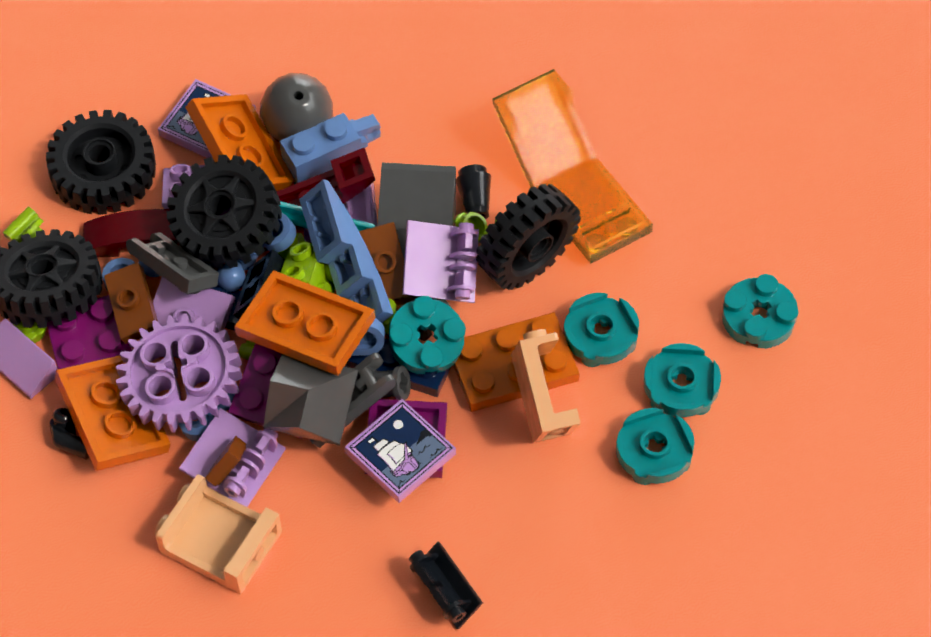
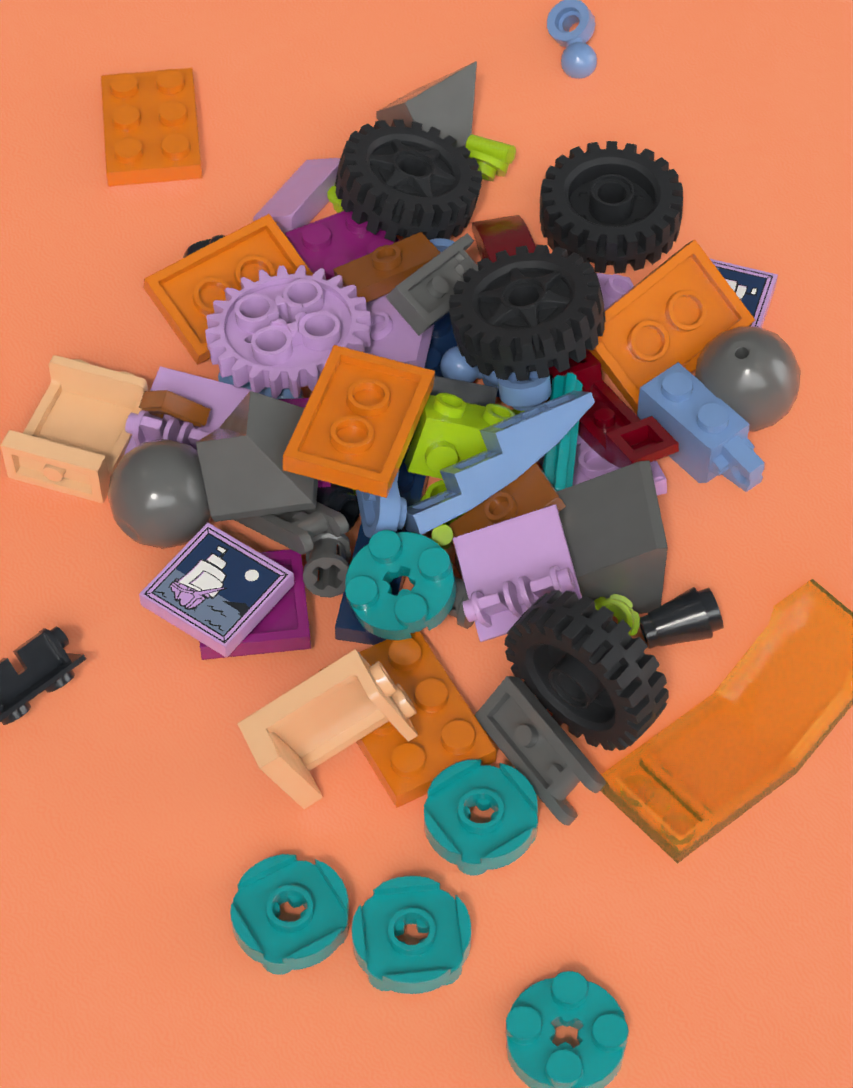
camera: 80 degrees right, 5 degrees down
(304, 476) = (159, 494): none -> dark grey piece
(557, 287) = (537, 746): none -> dark grey hinge

